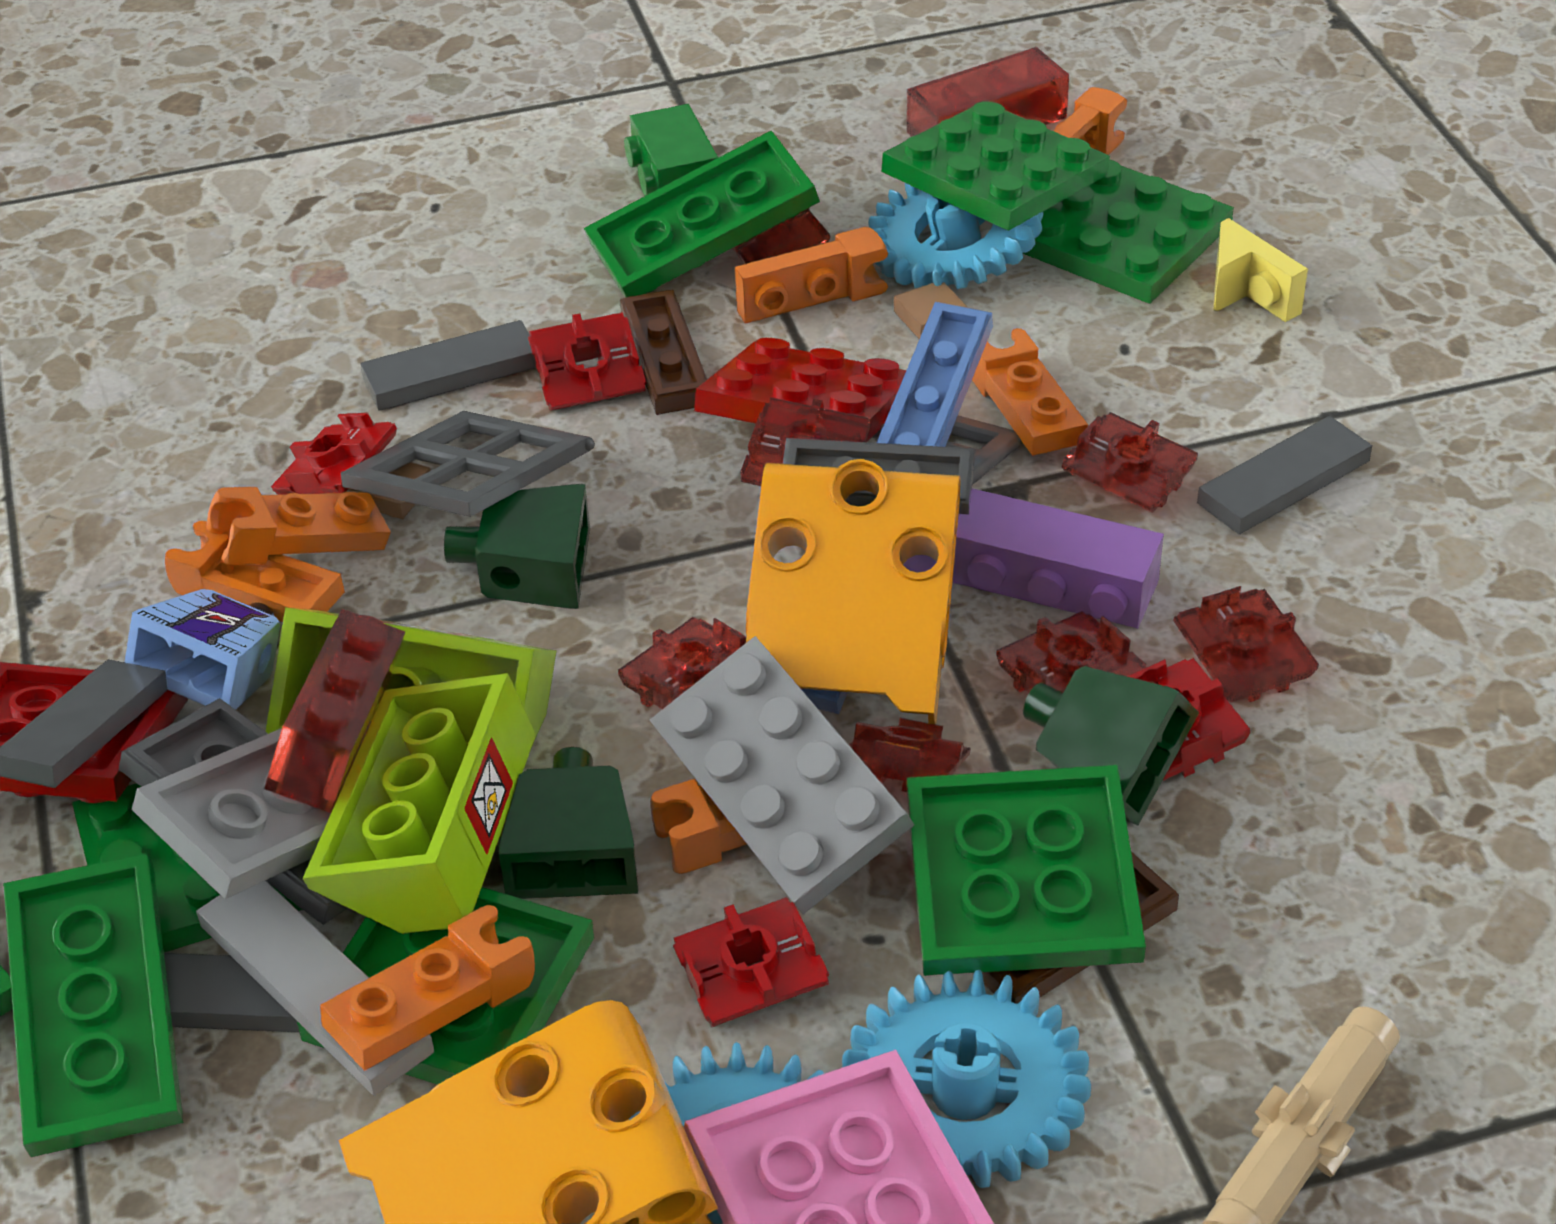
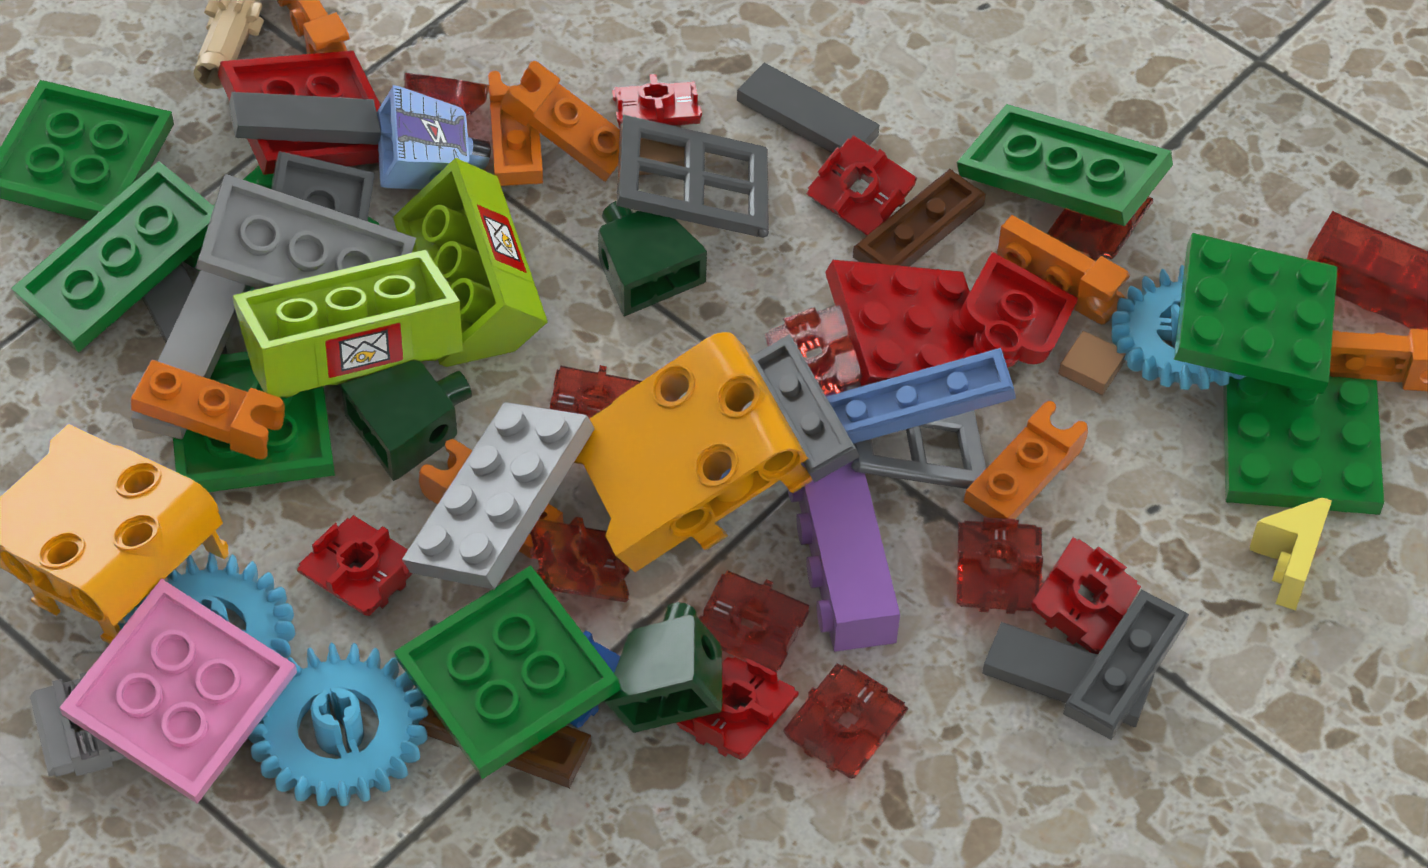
camera: 55 degrees right, 10 degrees up
(169, 583) = (460, 93): none -> clear red piece
(334, 710) = (372, 230): clear red brick -> none
(666, 146) = (1143, 104): green brick -> none
(842, 322) = (1015, 312): none -> red plate
(1208, 420) = (1062, 604): none -> red piece
(1313, 423) = (1125, 664): none -> dark grey tile

